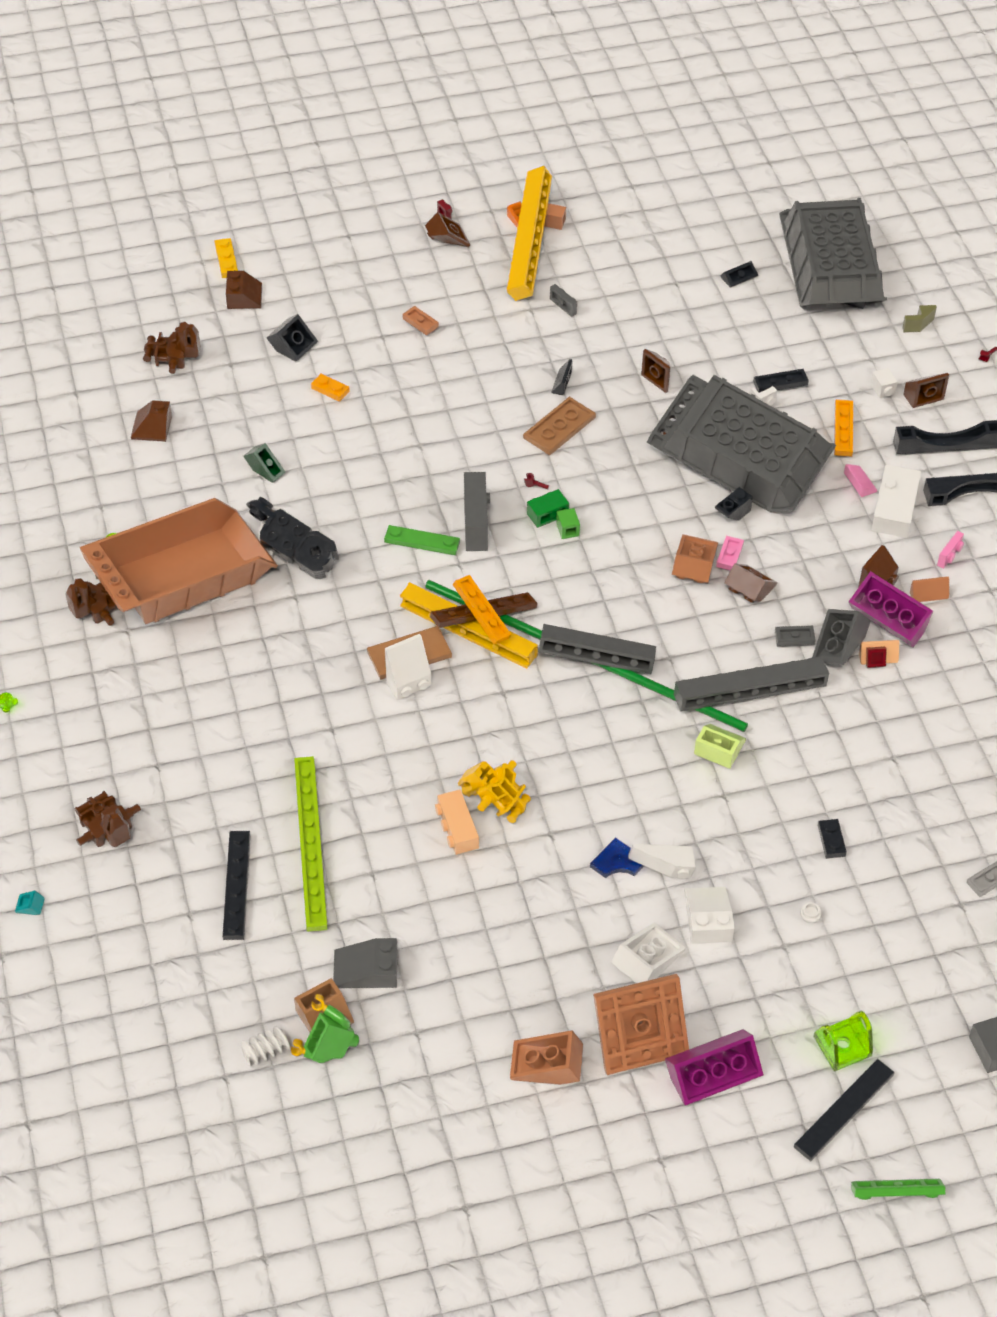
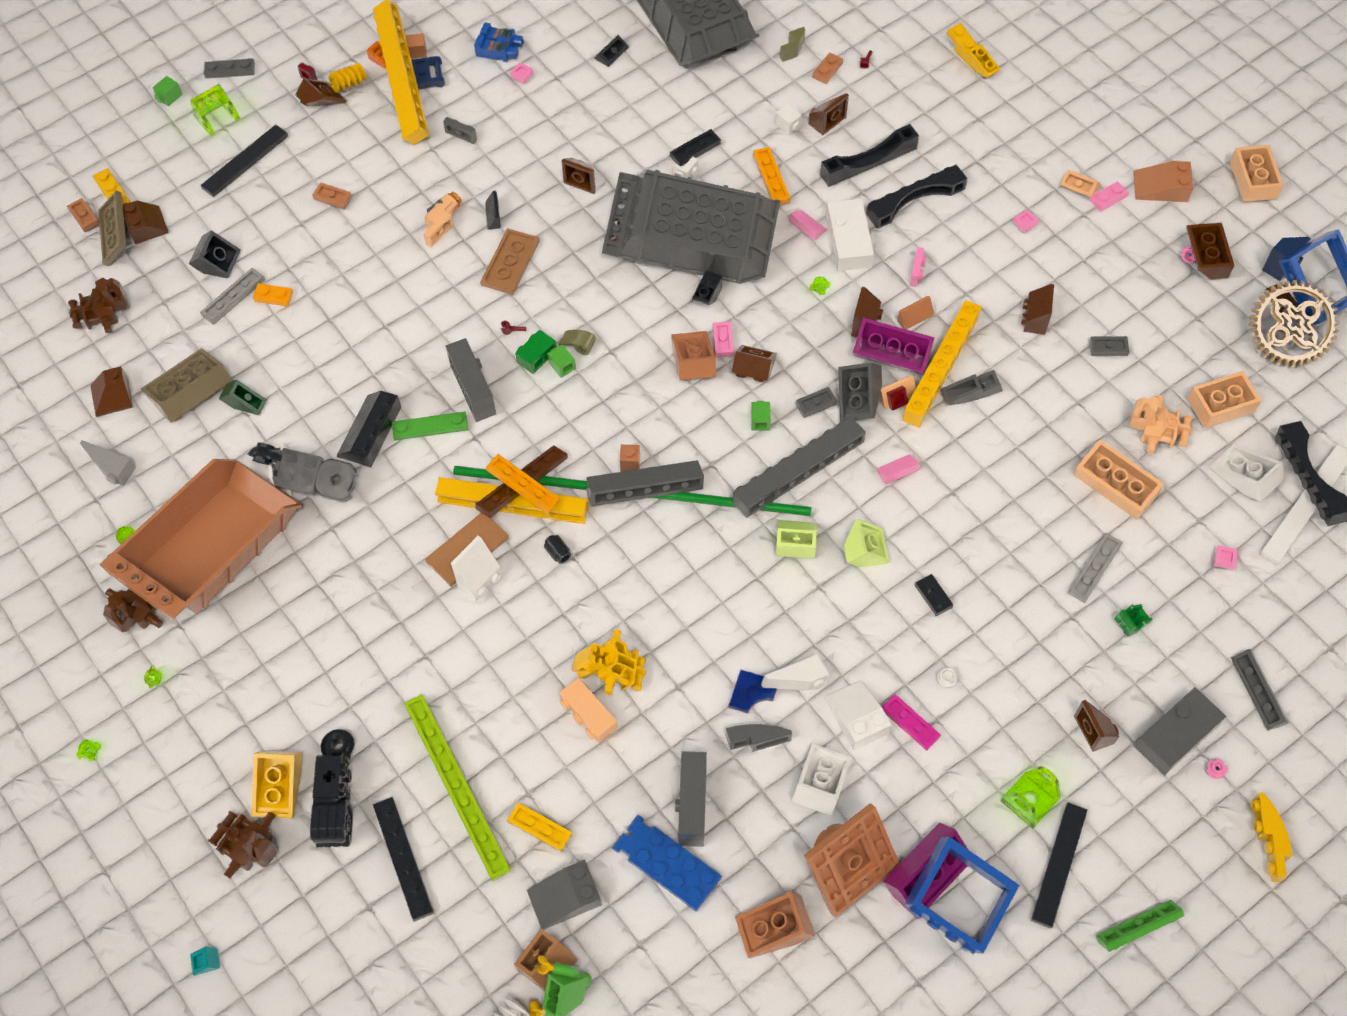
camera: 20 degrees left, 10 degrees up
(86, 662) = (152, 677): none -> clear neon green plate
(128, 482) = (113, 465): none -> light grey slope
(153, 782) = (275, 783): none -> yellow slope
(191, 818) = (331, 811): none -> black brick
(192, 270) = (83, 214): none -> nougat plate
(212, 287) = (112, 228): none -> dark tan tile
(220, 437) = (187, 385): none -> dark tan slope
(293, 377) = (232, 296): none -> light grey tile
(311, 189) = (167, 91): none -> bright green brick
(345, 208) = (210, 101): none -> clear neon green hose
(354, 268) = (244, 160): none -> black tile
(368, 524) = (370, 428): none -> black slope
(369, 902) = (539, 827): none -> yellow plate
(376, 187) = (229, 68): none -> dark grey plate
(472, 975) = (668, 863): none -> blue hinge
(478, 223) = (346, 77): none -> yellow piece
(491, 679) = (557, 549): none -> black brick
(509, 369) = (440, 218): none -> light nougat plate
(518, 925) = (692, 799): none -> dark grey brick
(551, 240) = (422, 72): none -> dark blue plate
(594, 512) = (580, 339): none -> olive panel
(594, 622) = (629, 457): none -> nougat brick
(604, 897) = (757, 736): none -> dark grey slope
(632, 236) = (497, 43): none -> blue hips
(644, 268) = (521, 72): none -> bright pink plate
(735, 629) = (760, 416): none -> bright green brick
(757, 938) = (911, 722): none -> dark pink tile
(760, 1073) = (913, 902): none -> blue window
(784, 772) = (866, 545): none -> yellowish green slope
(846, 536) = (820, 281): none -> clear neon green plate
(849, 719) = (898, 468): none -> bright pink slope
(934, 641) = (942, 364): none -> yellow brick
(937, 1003) = (1095, 726): none -> reddish brown slope
(945, 350) = (827, 68): none -> nougat plate
(955, 673) = (972, 388): none -> dark grey slope

